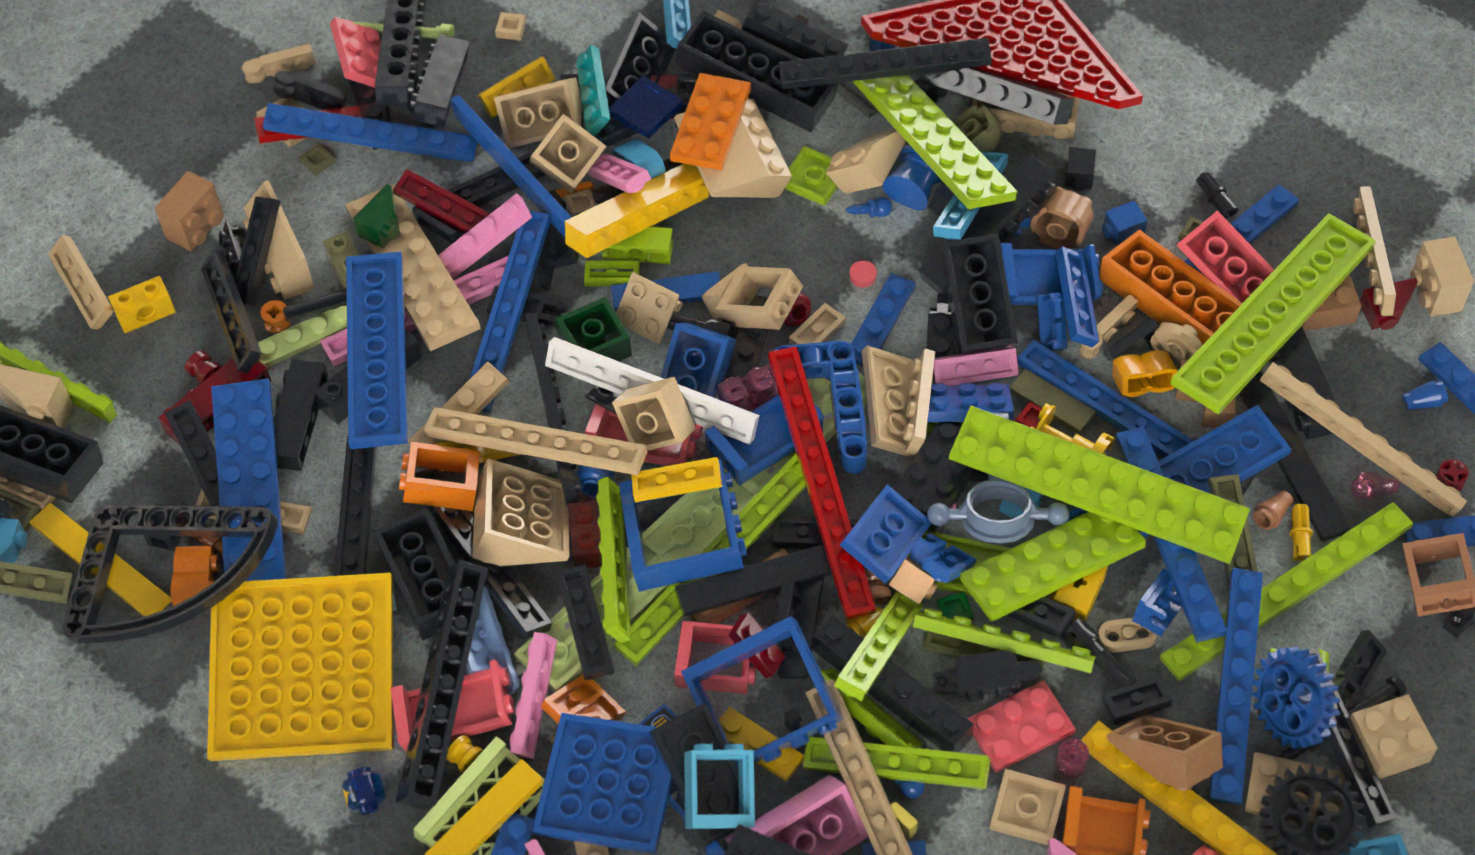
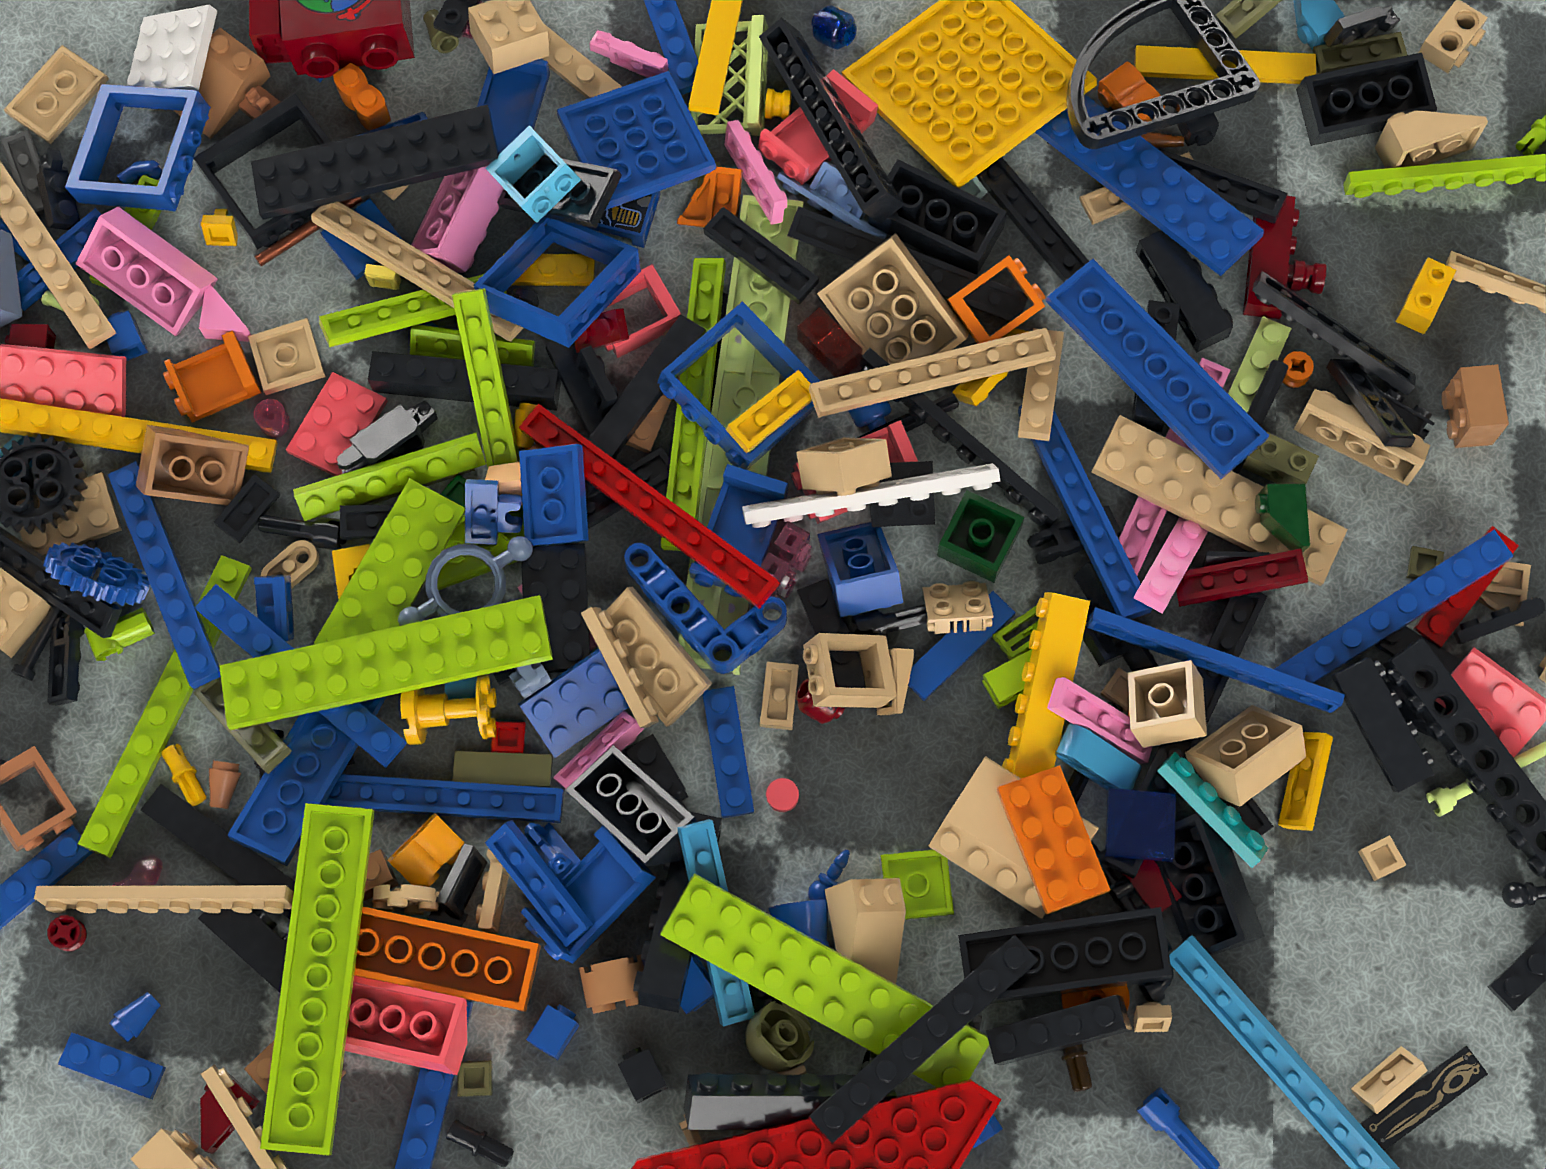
camera: 145 degrees right, 15 degrees up
(613, 561) = (772, 312): lime plate -> none

